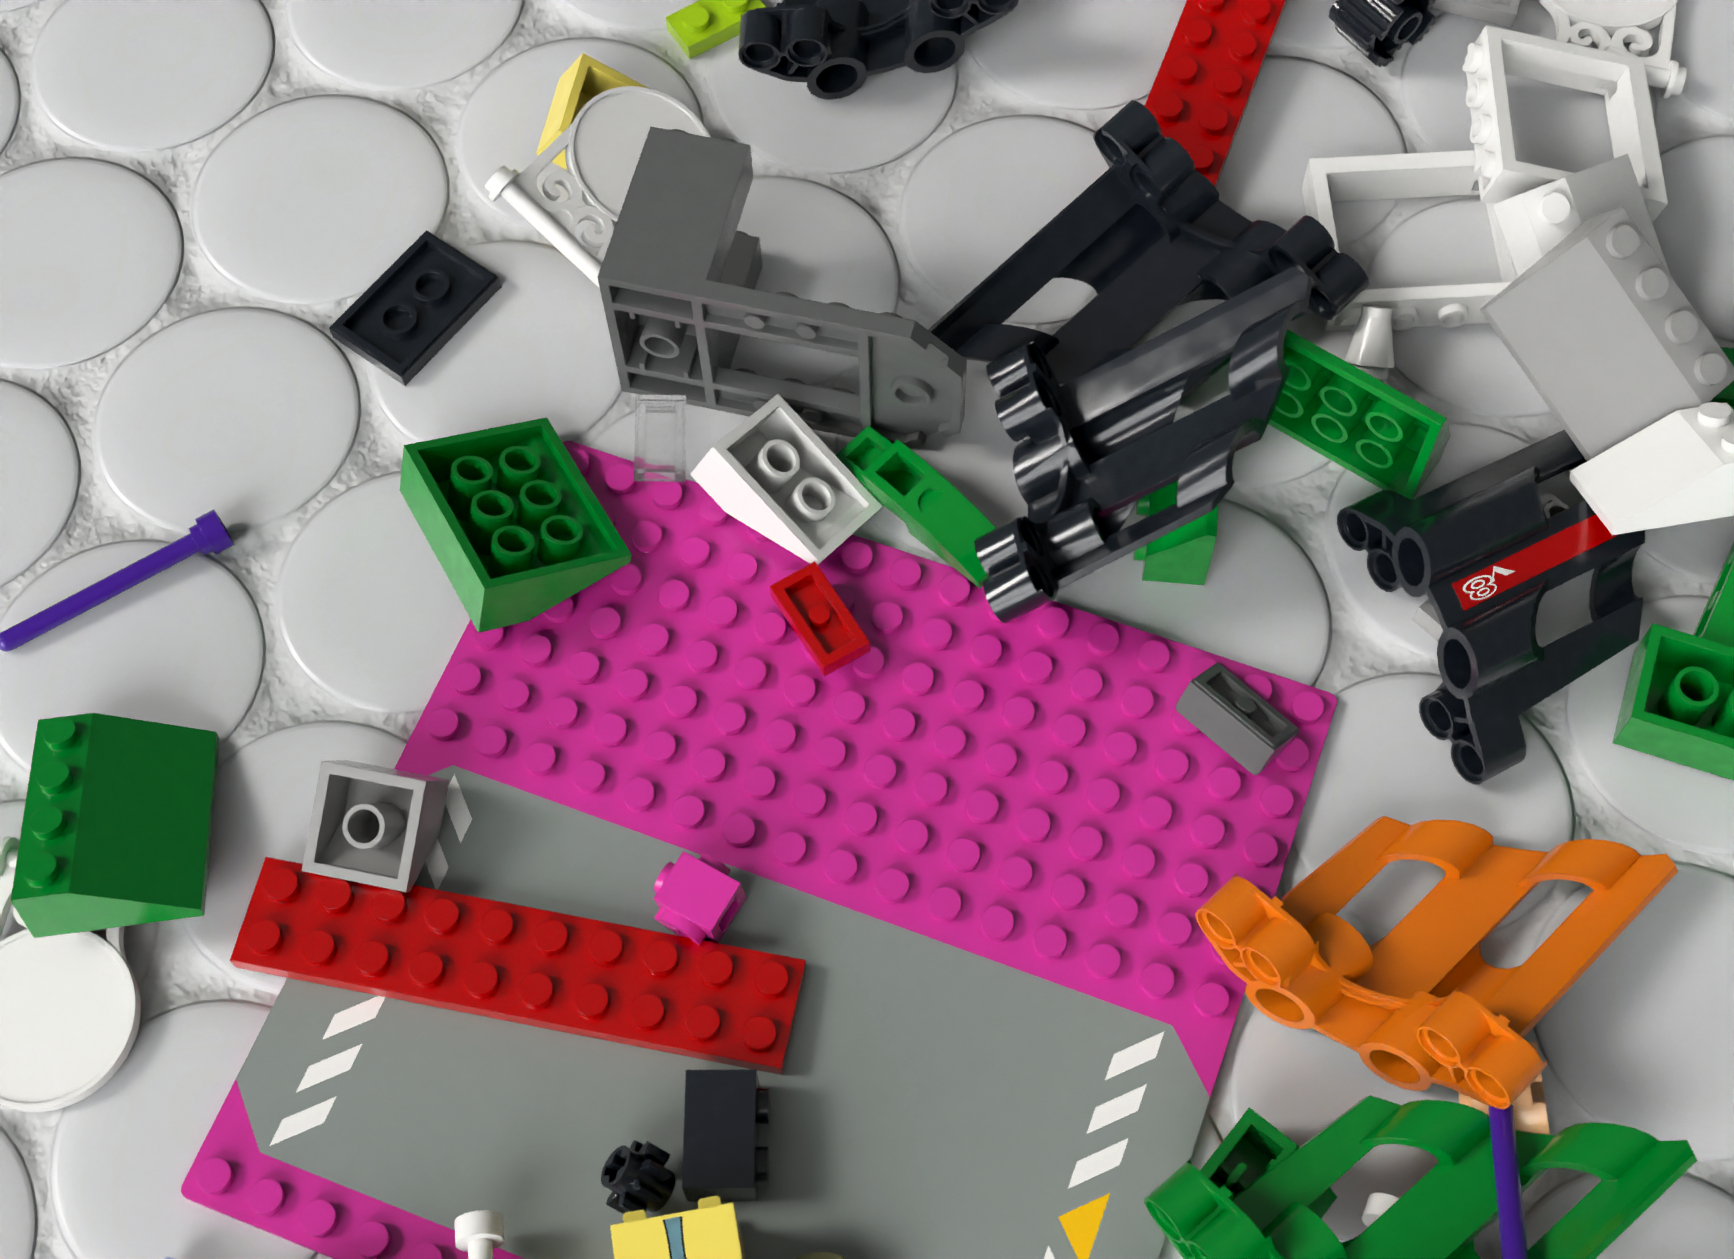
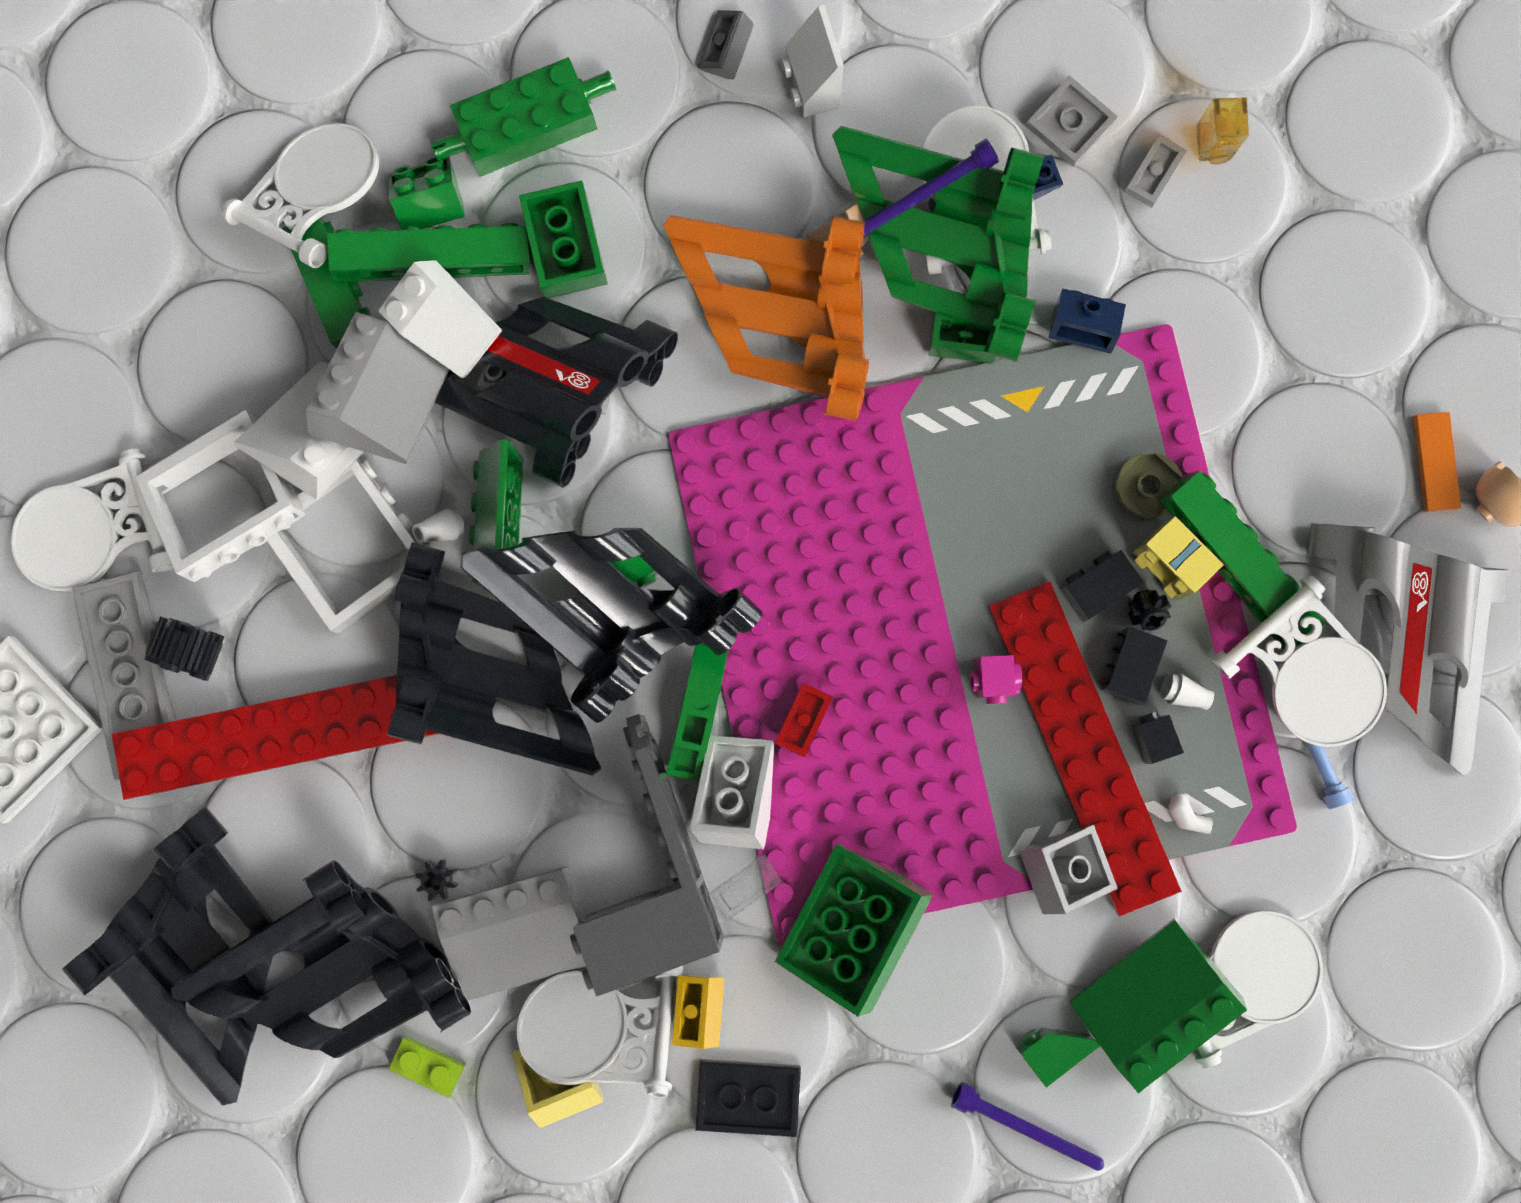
camera: 120 degrees left, 20 degrees up
(174, 666) = (1054, 1052): none -> green slope
(319, 1035) = (1185, 817): none -> white arm
(453, 1065) = (1156, 737): none -> black brick
(484, 1155) = (1185, 692): none -> white cone
(553, 296) = (698, 1011): none -> yellow brick
(577, 1101) = (1132, 665): none -> black brick
(813, 166) = (510, 933): none -> light grey slope
(921, 125) = (428, 875): none -> black gear
(1236, 718) = (718, 472): dark grey slope -> none

